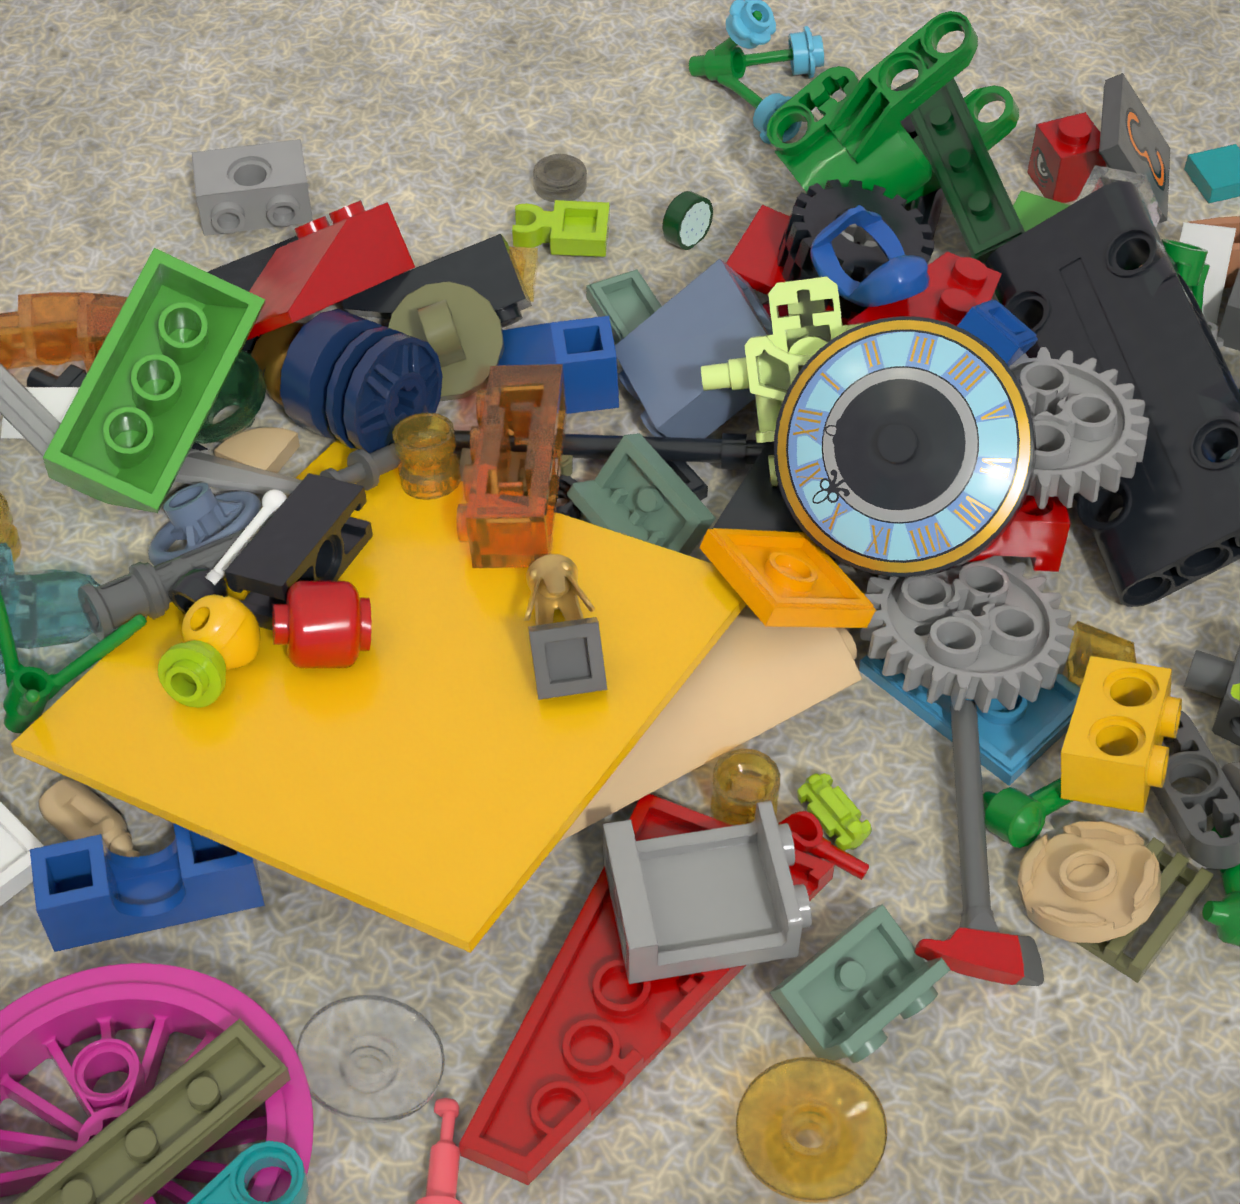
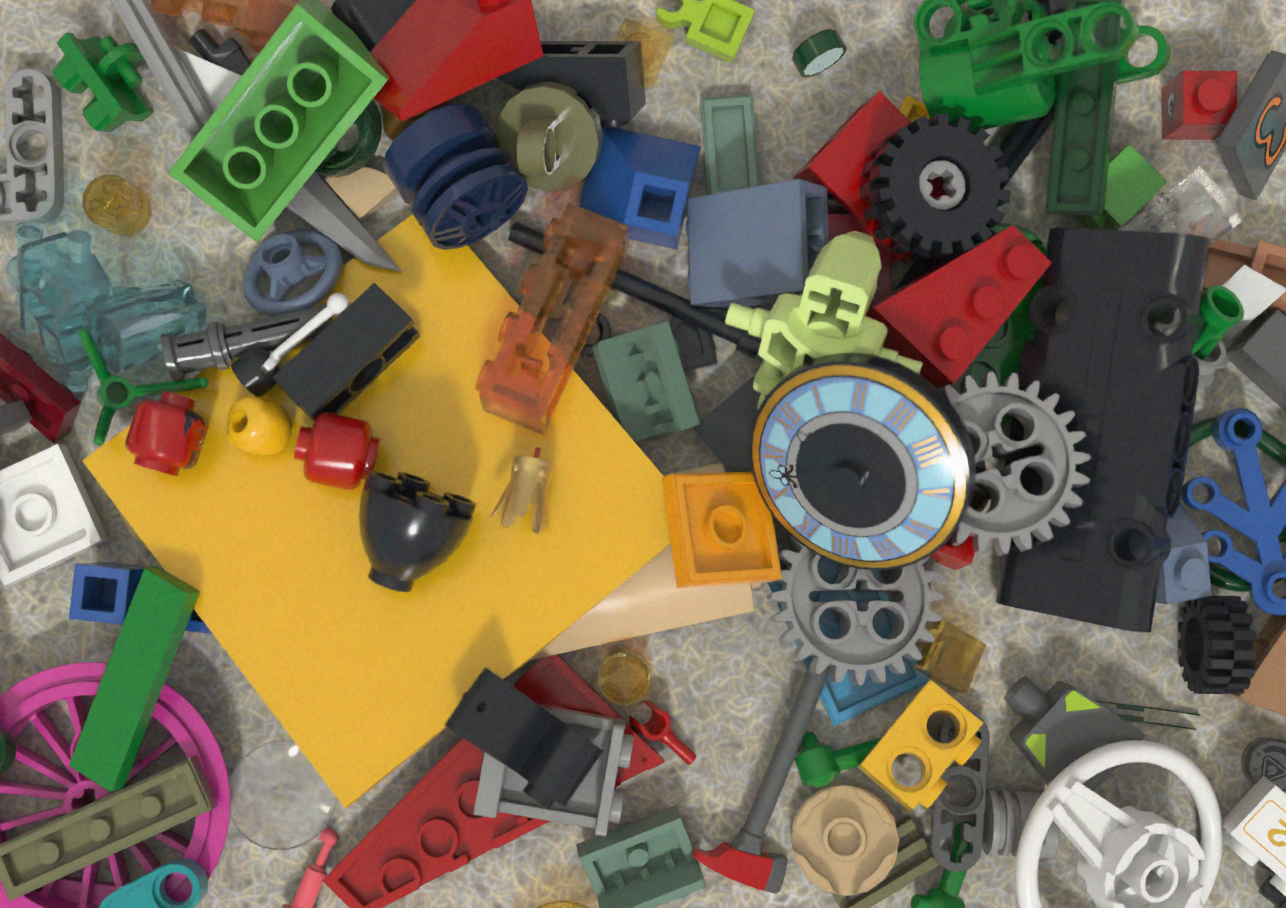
camera: 25 degrees right, 35 degrees up
(113, 667) = (167, 433): none -> red head
(141, 940) = (134, 678): none -> green tile
(193, 673) = (225, 461): lime plate -> none
(366, 468) = (448, 259): dark grey piece -> none
(427, 457) = (483, 265): clear yellow wheel -> none
(436, 642) = (409, 528): none -> black piece
(567, 658) = (508, 569): dark grey tile -> none
(690, 863) = (524, 739): none -> black door
(834, 811) = (688, 707): lime piece -> none
(891, 282) = (930, 283): blue piece -> none
(999, 330) = (993, 367): blue slope -> none

